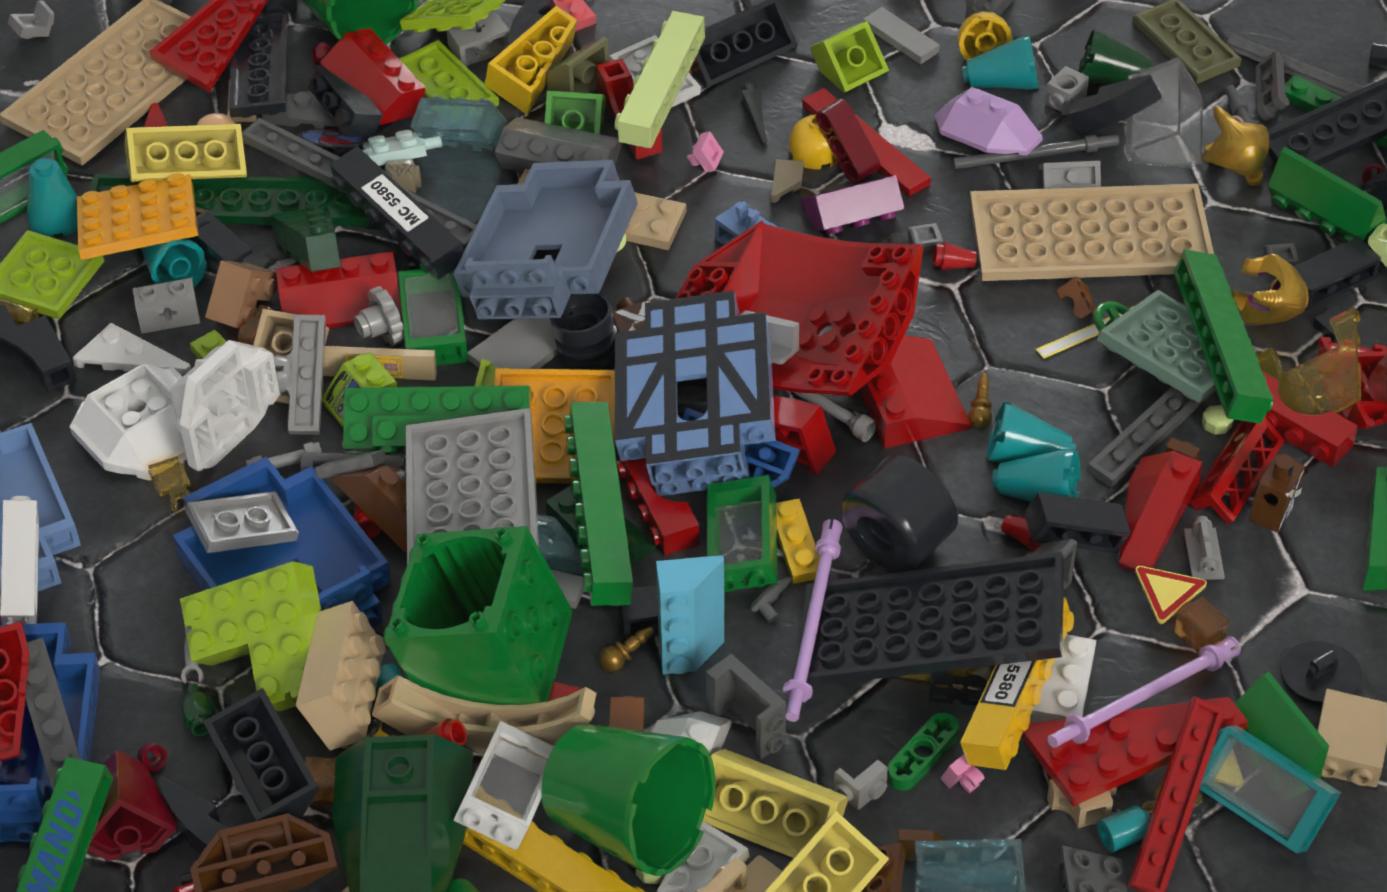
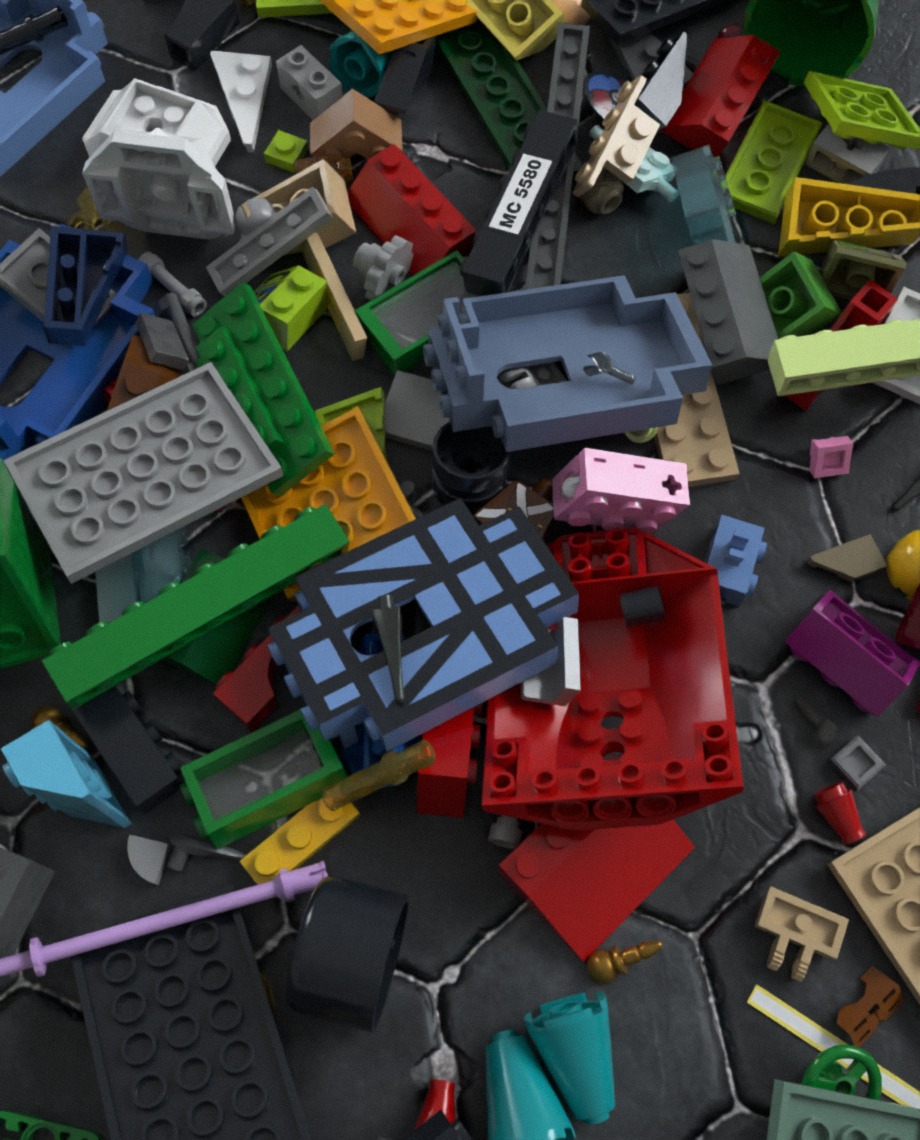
camera: 60 degrees right, 20 degrees up
(263, 491) = (79, 280): none -> dark blue wedge
(307, 236) = (447, 151): dark green wedge -> none
(384, 137) = (623, 141): none -> tan bracket
(568, 217) = (604, 365): none -> clear smoke hand
(665, 255) = (619, 491): none -> bright pink piece
(697, 391) = (389, 627): none -> pearl dark grey piece
(756, 629) = (147, 857): none -> light grey tile
(758, 276) = (642, 607): none -> black beam
(788, 455) = (392, 769): none -> clear yellow pin
(1011, 308) = (802, 925): none -> tan hinge

